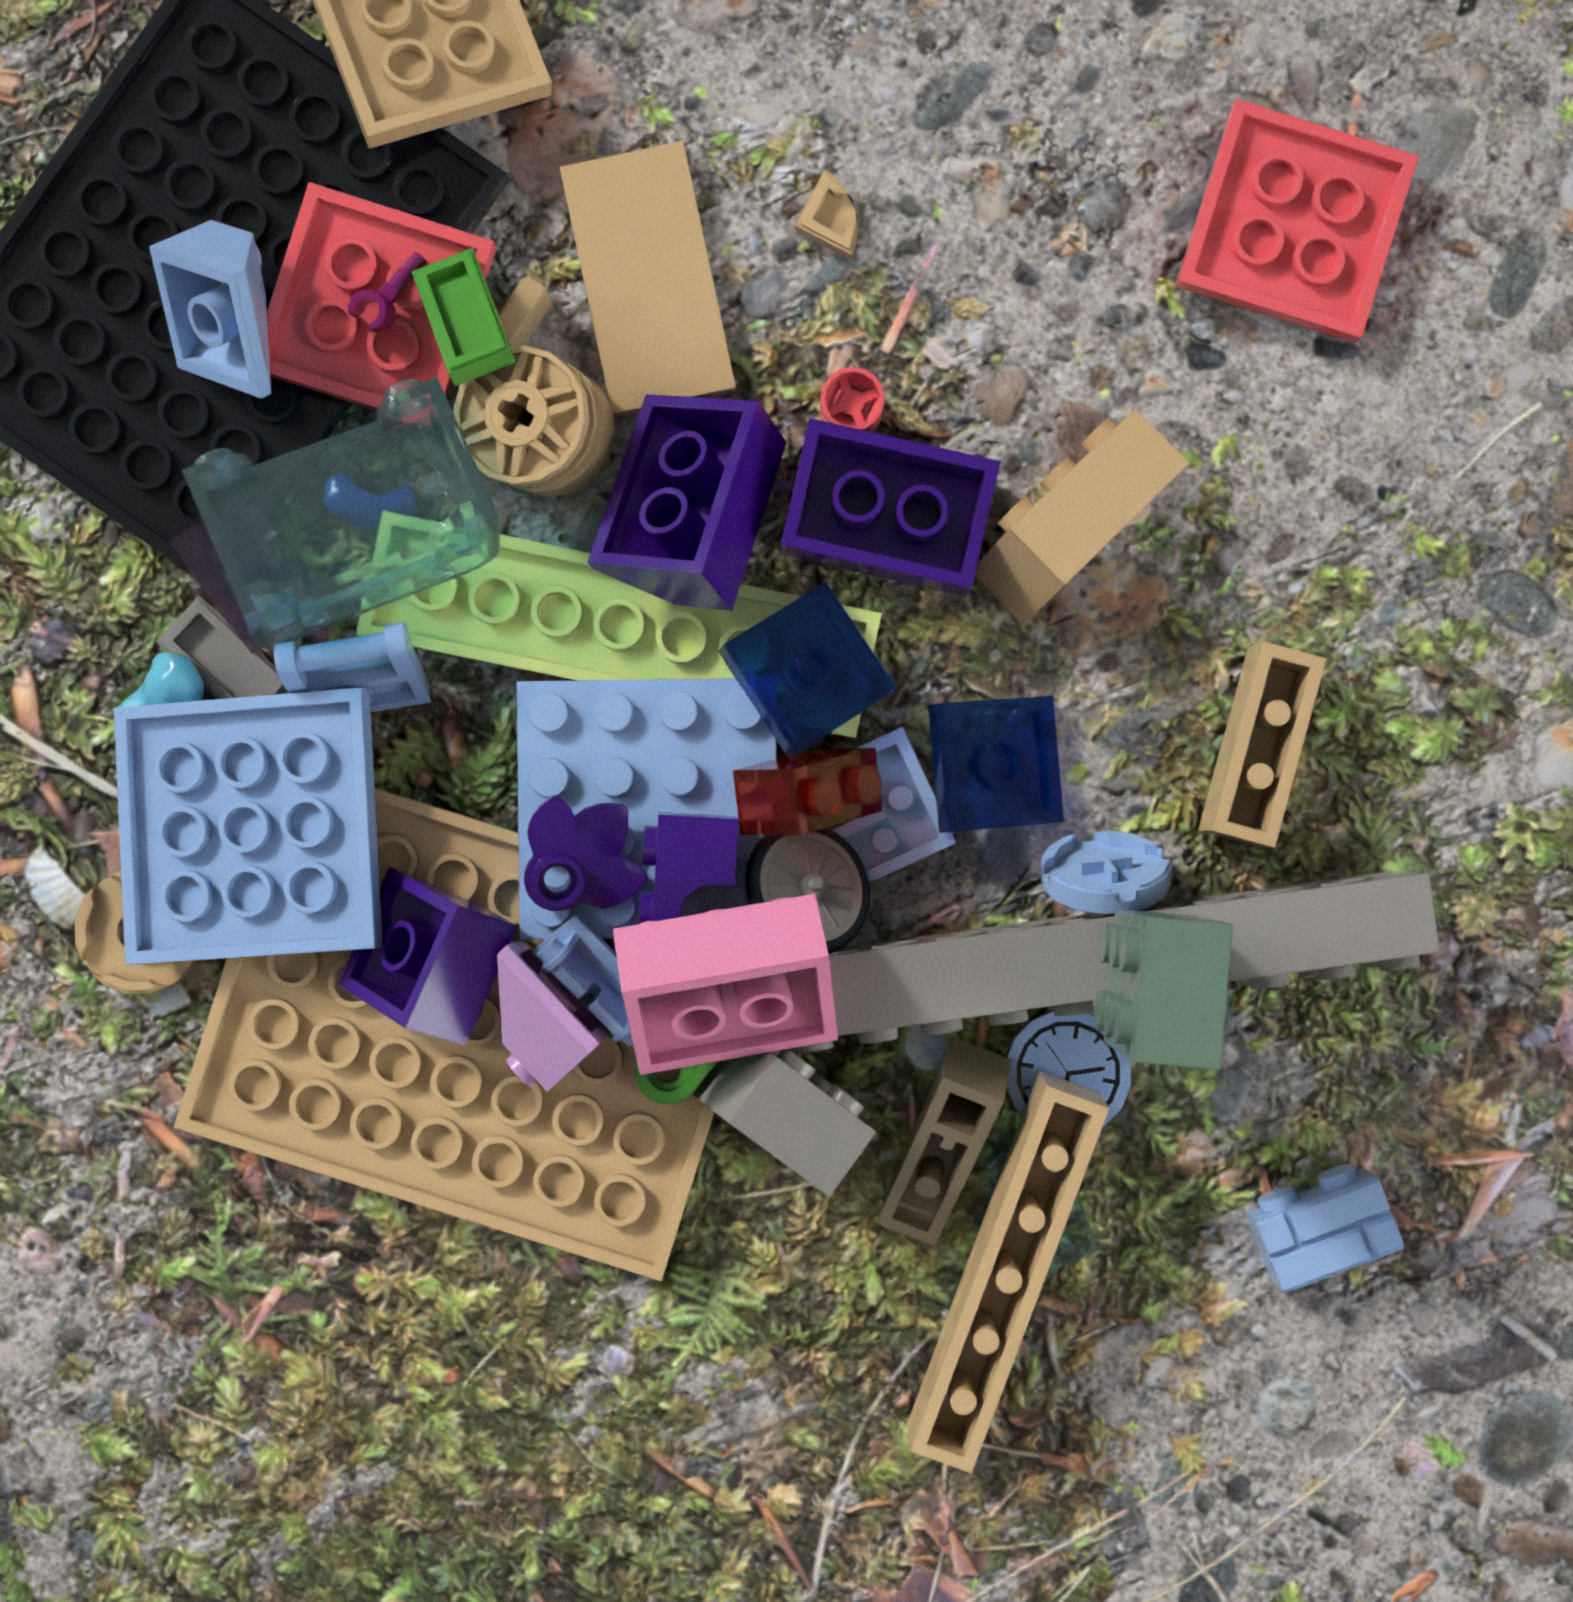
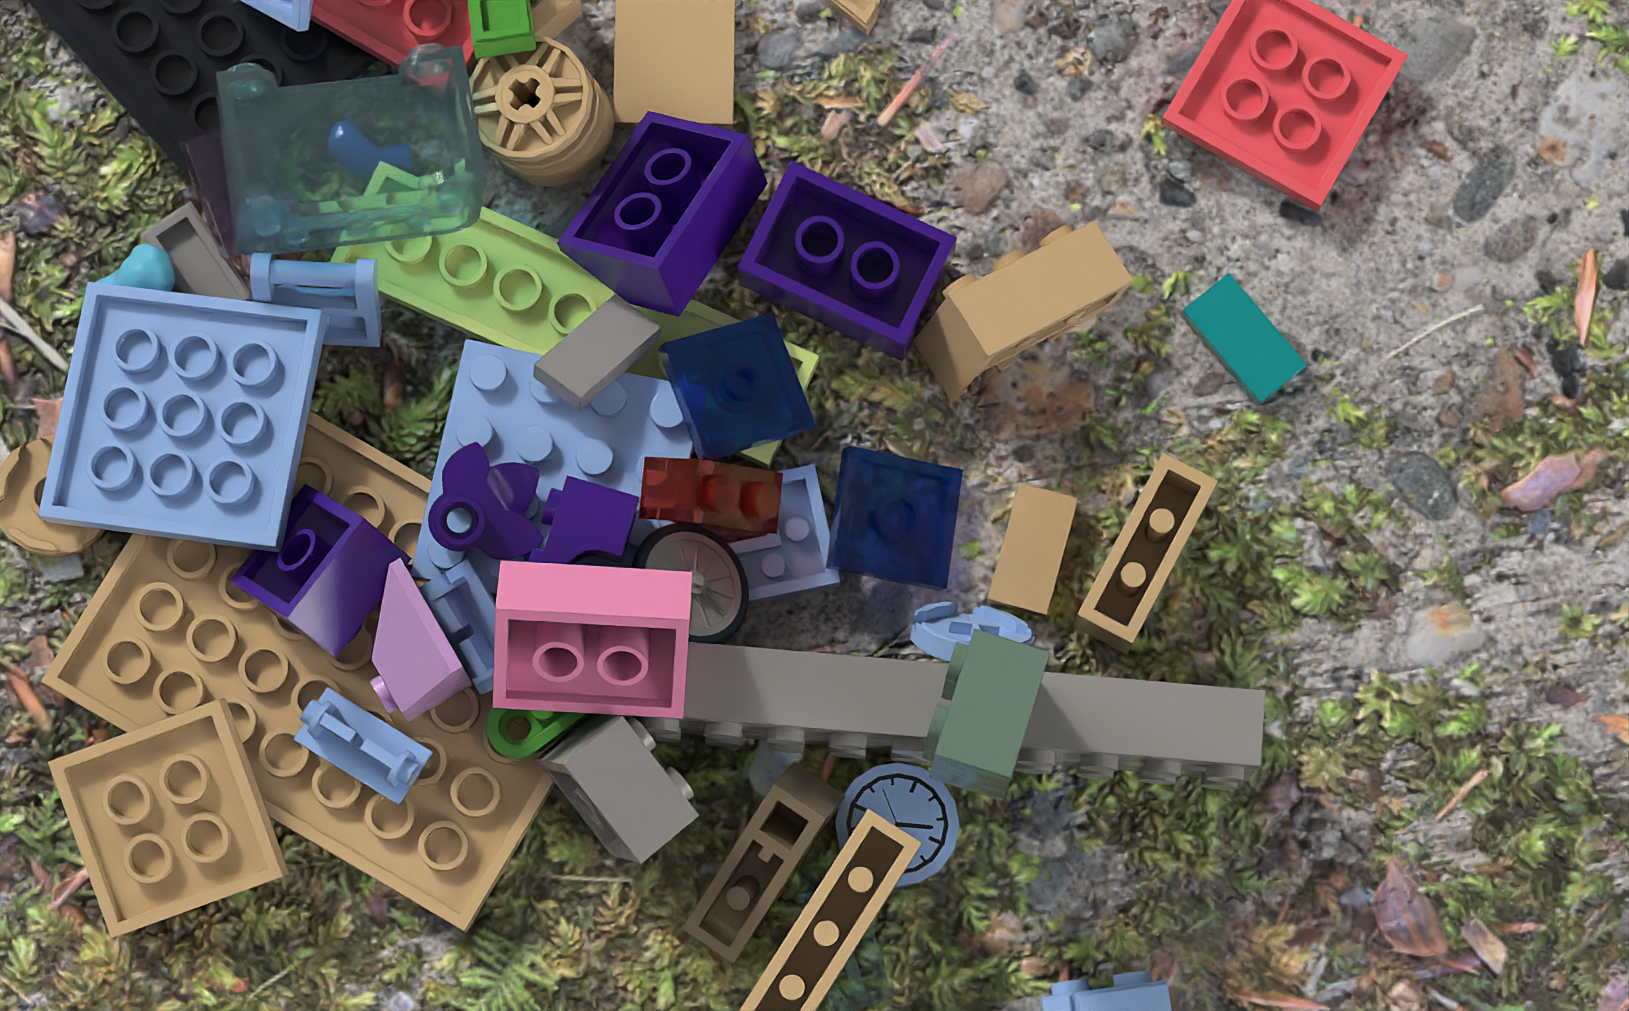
camera: 15 degrees right, 10 degrees down
(337, 1238) = (168, 817): none -> tan plate
(514, 1122) = (362, 745): none -> light blue hinge
(655, 667) = (597, 352): none -> light grey tile
(849, 393) = (834, 149): coral wheel -> none
(1141, 761) = (1032, 550): none -> tan tile
(1308, 494) = (1243, 339): none -> teal tile

